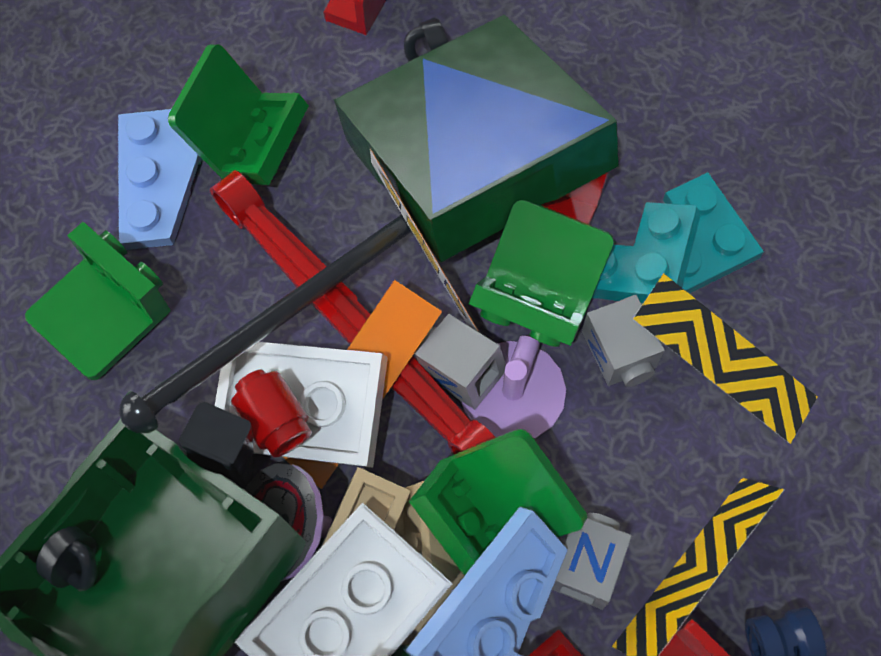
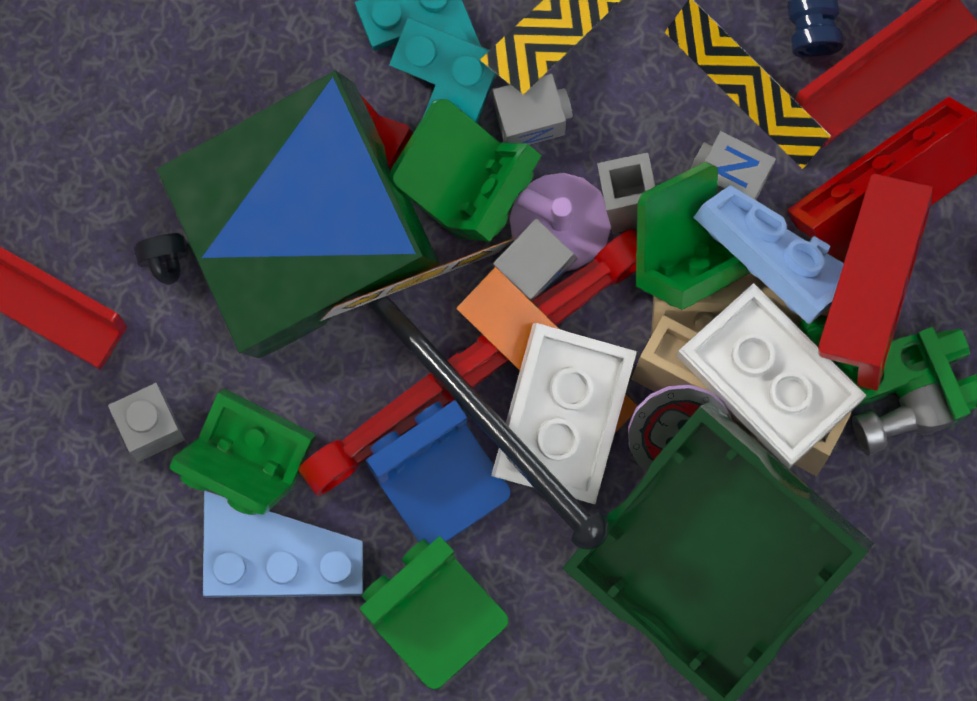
camera: 85 degrees left, 10 degrees up
(69, 559) = (691, 629): black tile -> none
(220, 443) = (610, 473): black slope -> none
(230, 285) = (437, 474): none -> blue bracket
(271, 47) = (146, 422): none -> light grey brick
(272, 410) = (583, 429): red brick -> none
(557, 435) = (622, 185): none -> light grey brick

